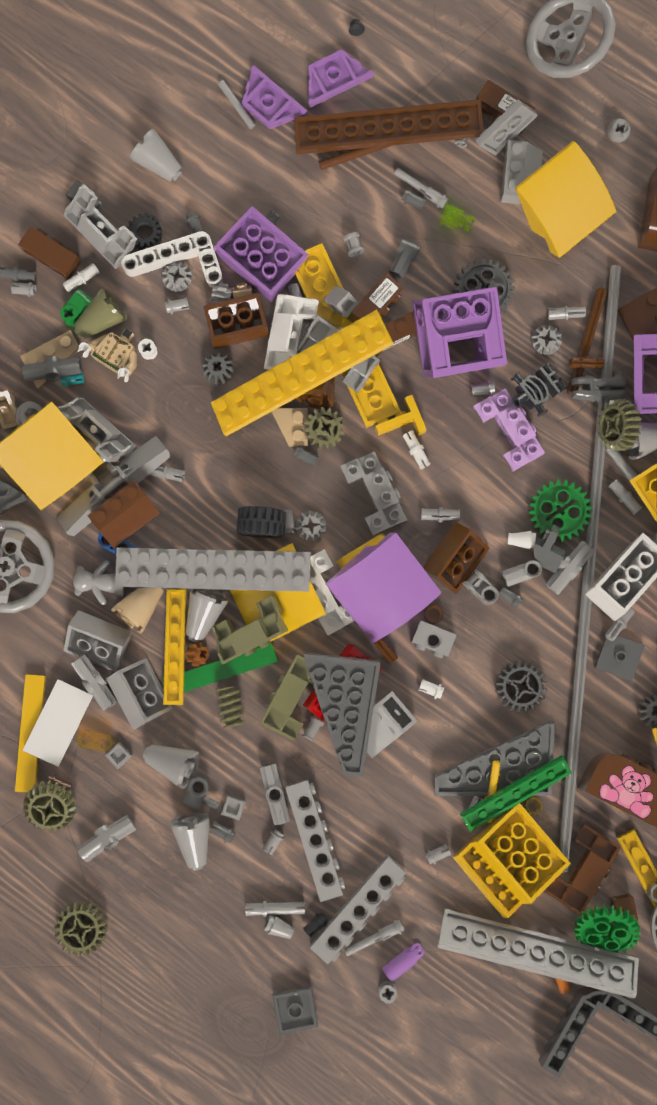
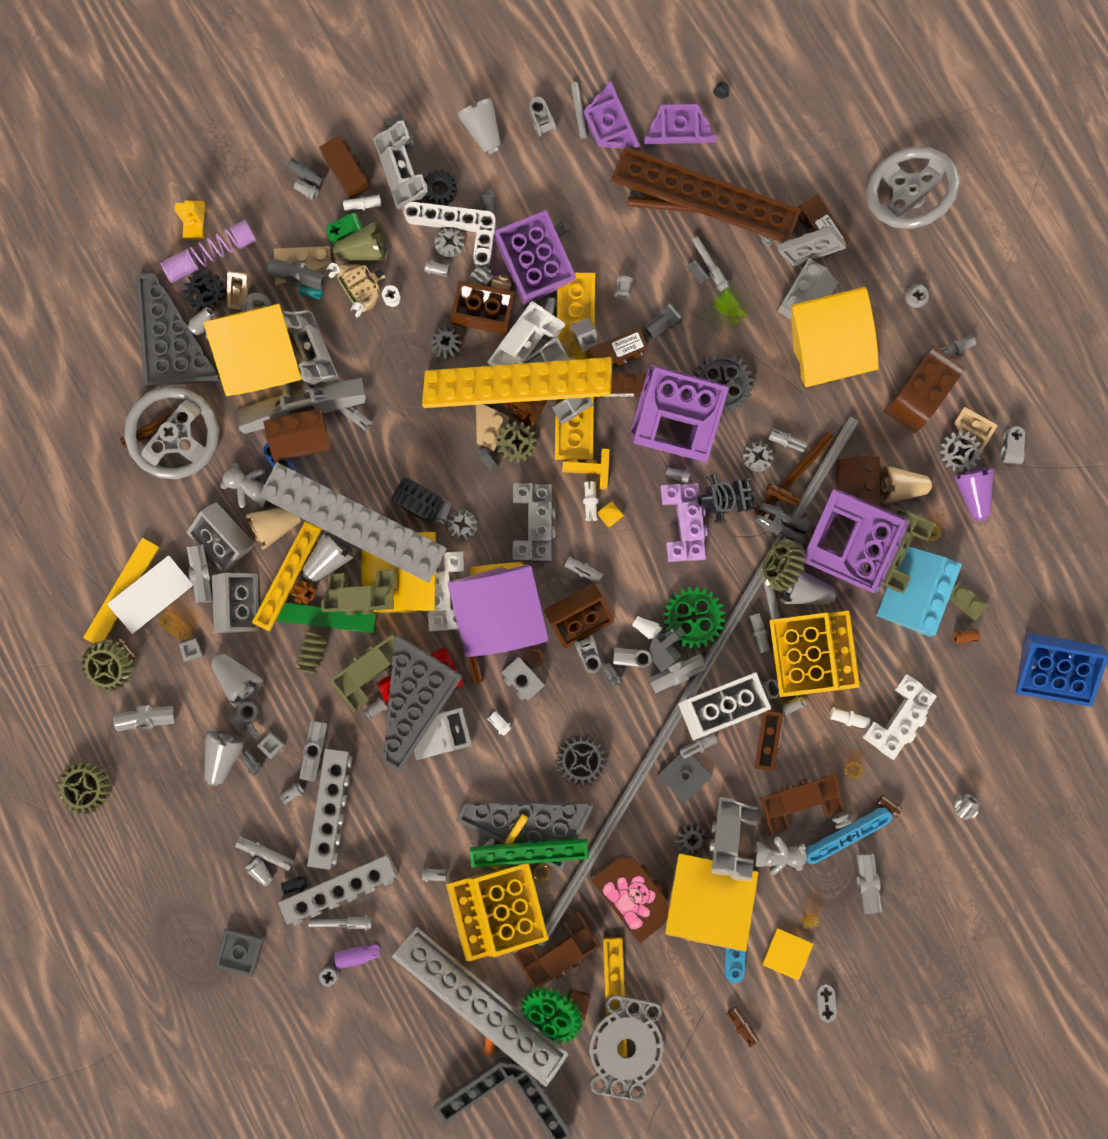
camera: 20 degrees right, 0 degrees up
(208, 127) = (541, 119): none -> light grey piece
(439, 453) = (610, 514): none -> yellow plate

